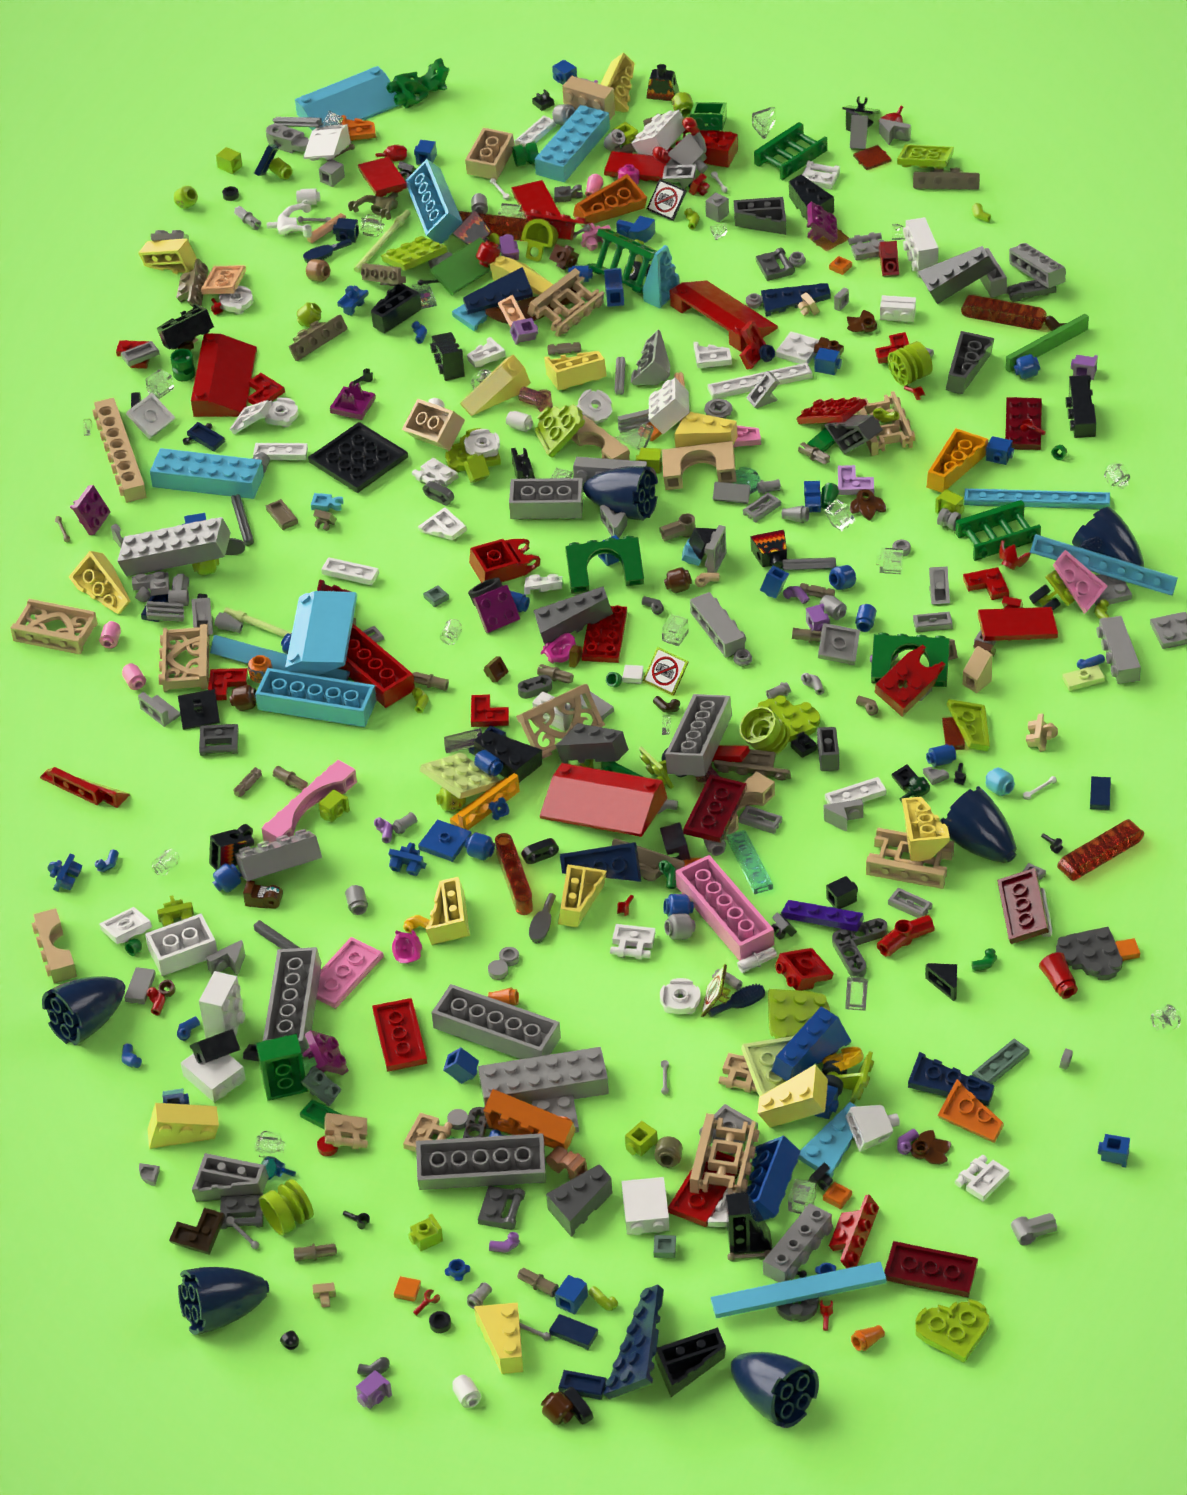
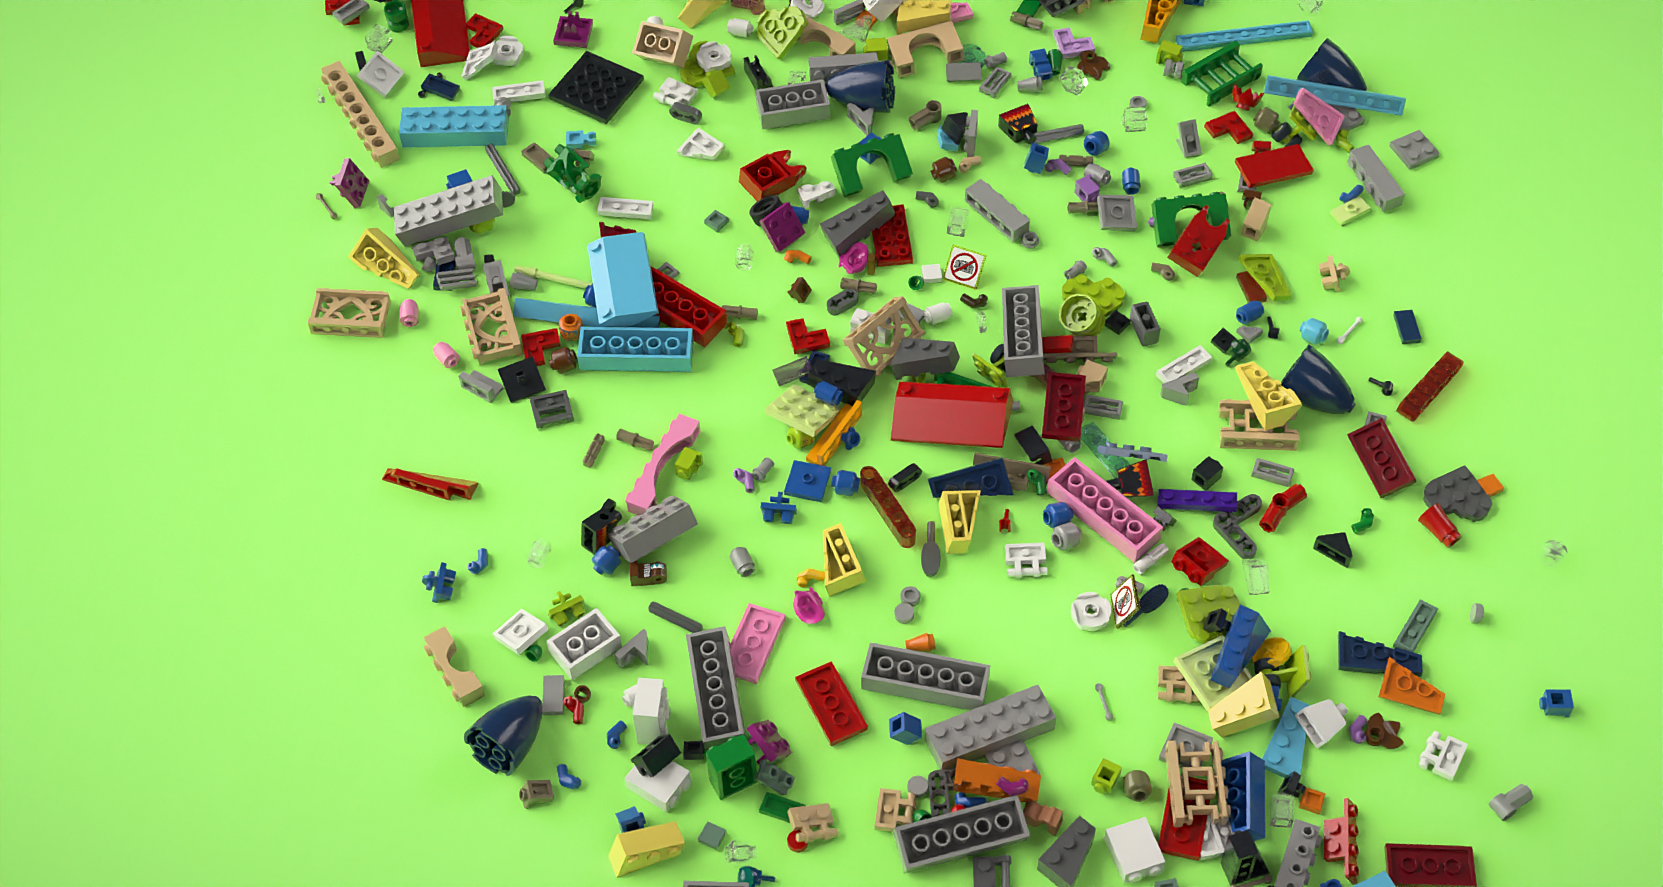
camera: 15 degrees left, 10 degrees up
(96, 1062) = (535, 792): none -> dark tan bracket
(248, 1127) = (712, 835): none -> sand green tile
(311, 539) = (564, 164): none -> green hips
(507, 638) = (791, 254): none -> orange arm
(541, 1126) = (1014, 788): none -> magenta arm
(625, 710) = (938, 313): none -> white brick
(762, 886) = (1133, 480): none -> torso
(767, 859) = (1129, 451): none -> sand blue wing
(796, 1020) = (1216, 621): none -> black tile
(1027, 580) = (1266, 120): none -> olive head

